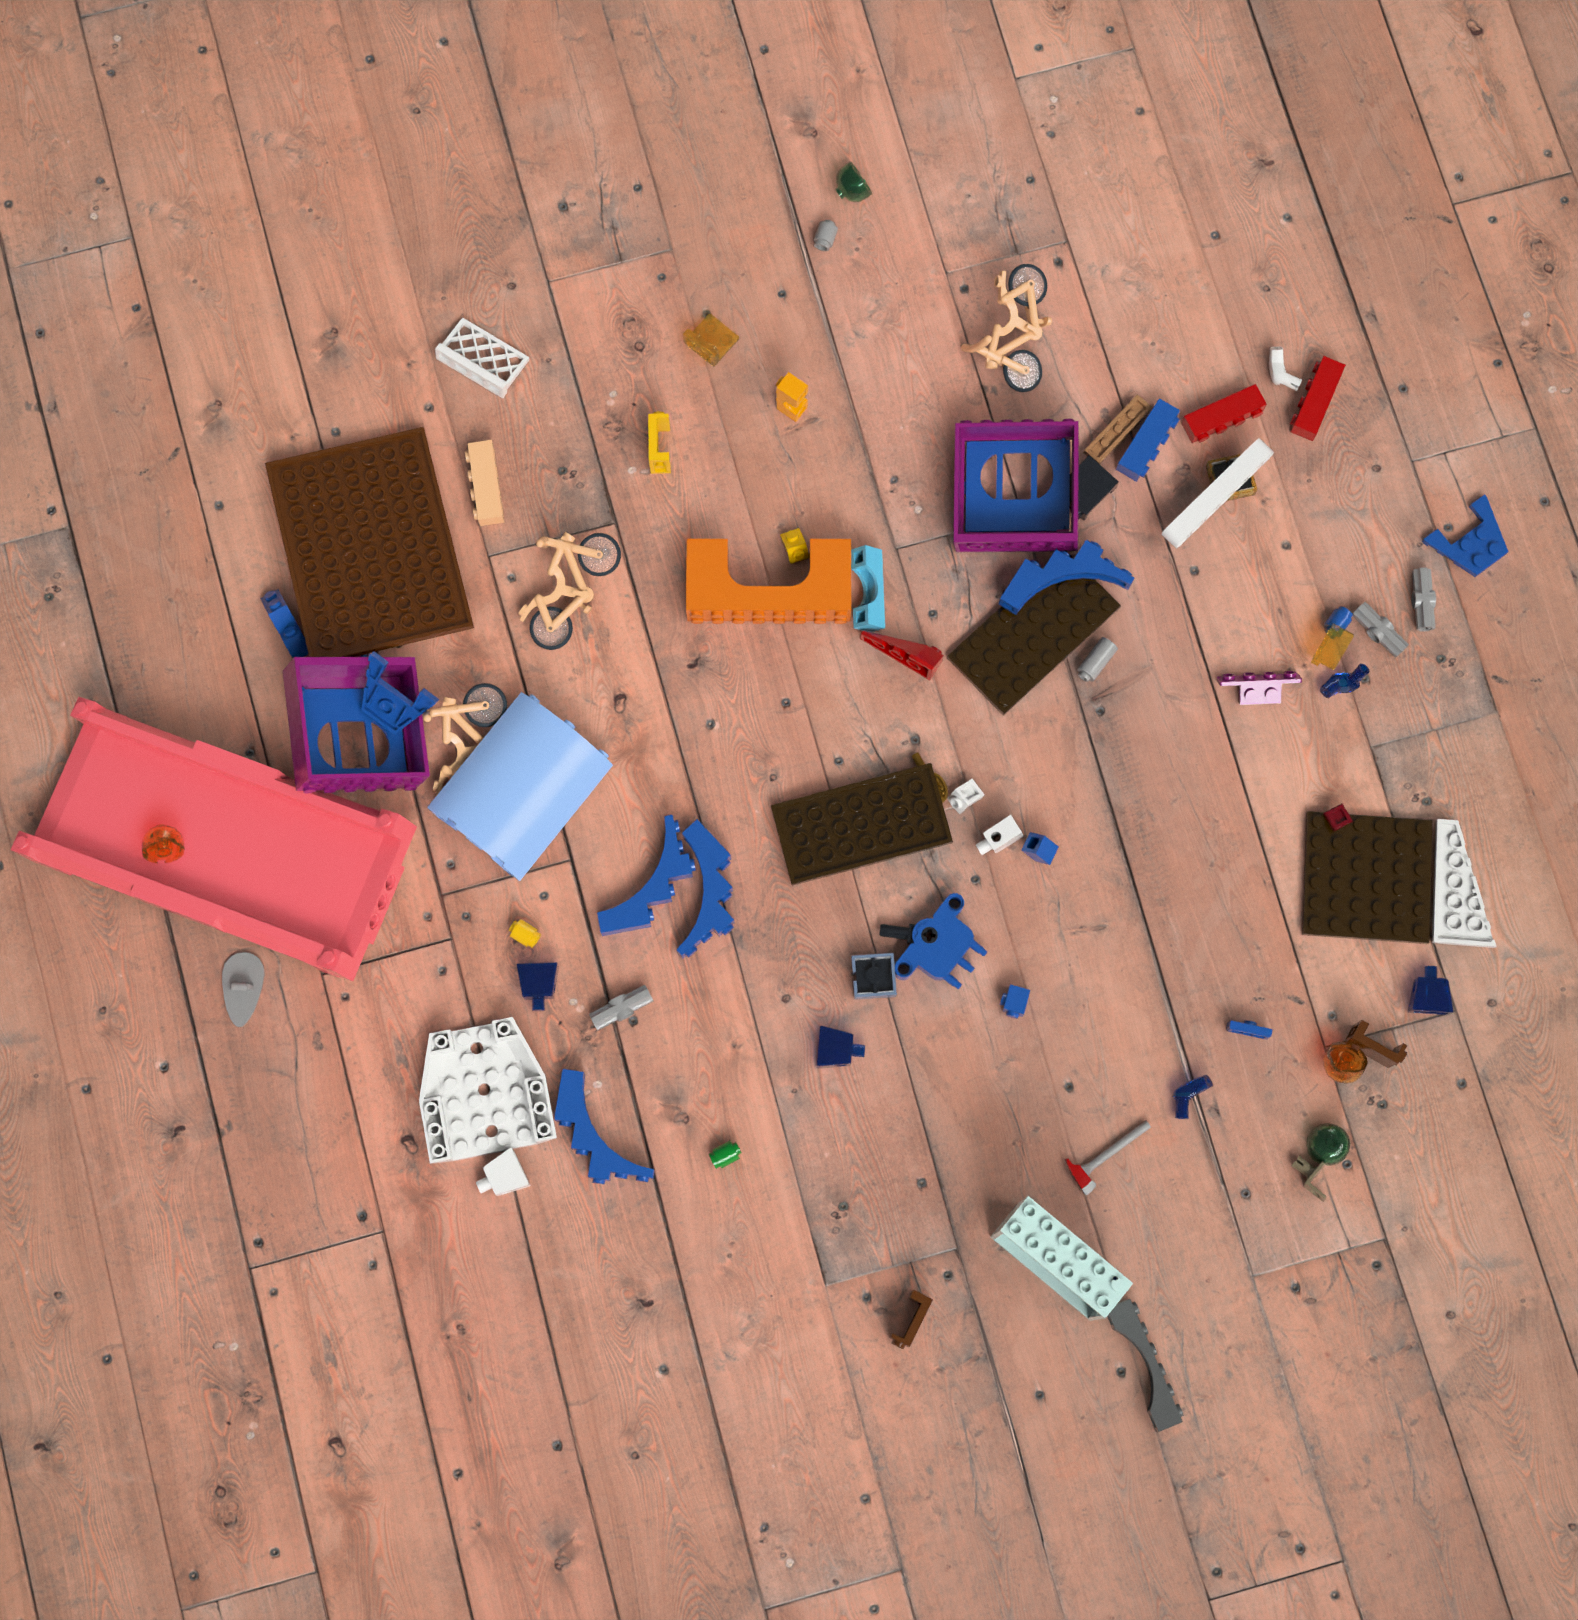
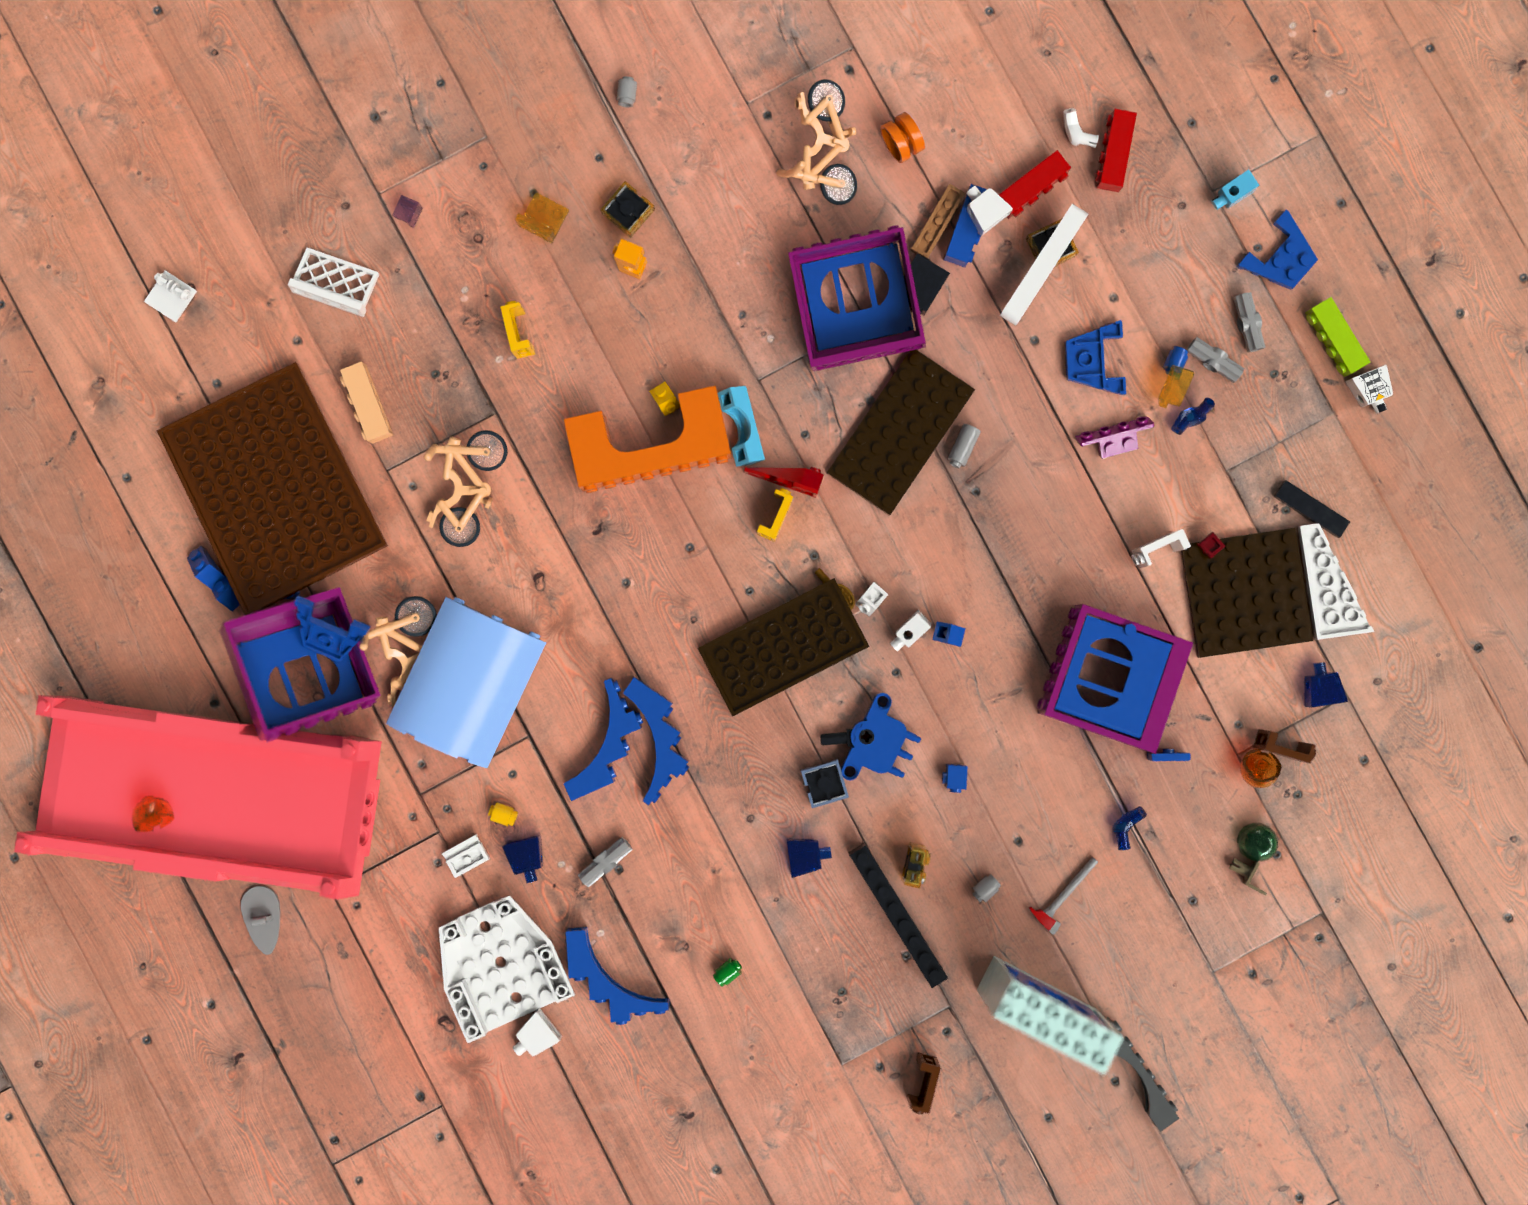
camera: 15 degrees left, 10 degrees up
(311, 335) = (170, 295): none -> white hinge
(474, 968) = (466, 856): none -> white plate
(575, 303) = (408, 211): none -> panel
(799, 349) = (627, 209): none -> piece
(851, 184) = (640, 36): clear green cylinder -> none
(875, 703) = (771, 534): none -> yellow panel
(922, 1133) = (898, 915): none -> black brick
(952, 1081) = (916, 859): none -> clear yellow piece
(1023, 1127) = (986, 888): none -> light grey brick
(1061, 567) = (936, 359): blue arch -> none
(1098, 338) = (902, 137): none -> orange wheel
(1170, 425) = (986, 209): none -> white torso
(1213, 969) = (1150, 682): none -> door
(1244, 602) = (1086, 359): none -> blue wing
(1300, 800) = (1177, 540): none -> white panel
(1440, 459) = (1241, 188): none -> medium azure torso
(1454, 805) = (1312, 509): none -> black tile
(1513, 634) = (1337, 337): none -> lime brick
(1540, 694) = (1372, 388): none -> torso

